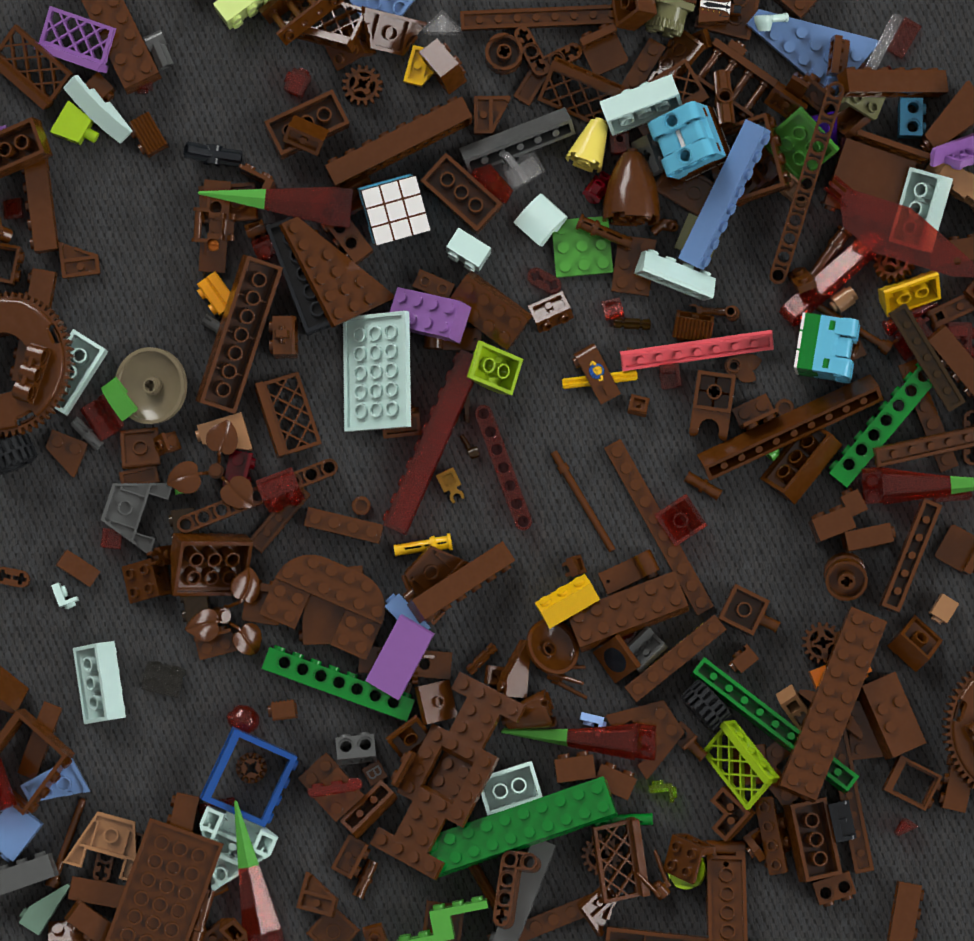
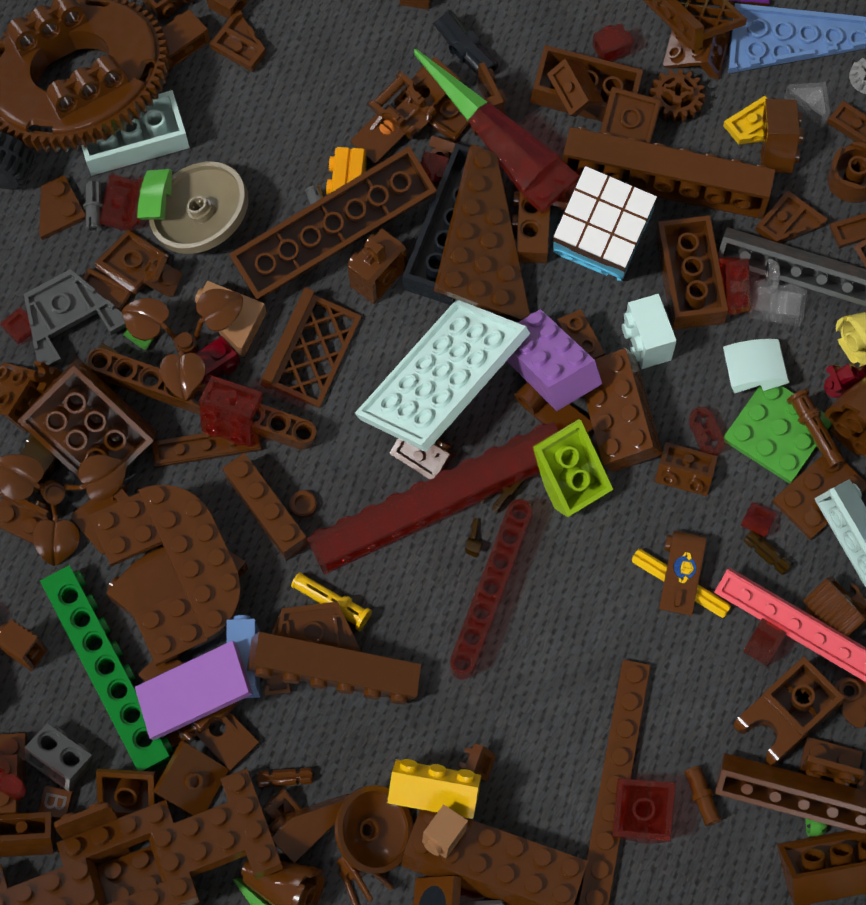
camera: 45 degrees right, 15 degrees down
(351, 127) = (630, 115): none -> reddish brown plate
(390, 31) = (751, 61): wing -> none
(449, 482) = (418, 556): pearl gold plate -> none
(563, 468) = (557, 647): reddish brown bar -> none
(592, 619) = (444, 832): none -> medium nougat brick
(629, 572) = (535, 822): reddish brown door -> none
(638, 405) = (700, 645): reddish brown tile -> none

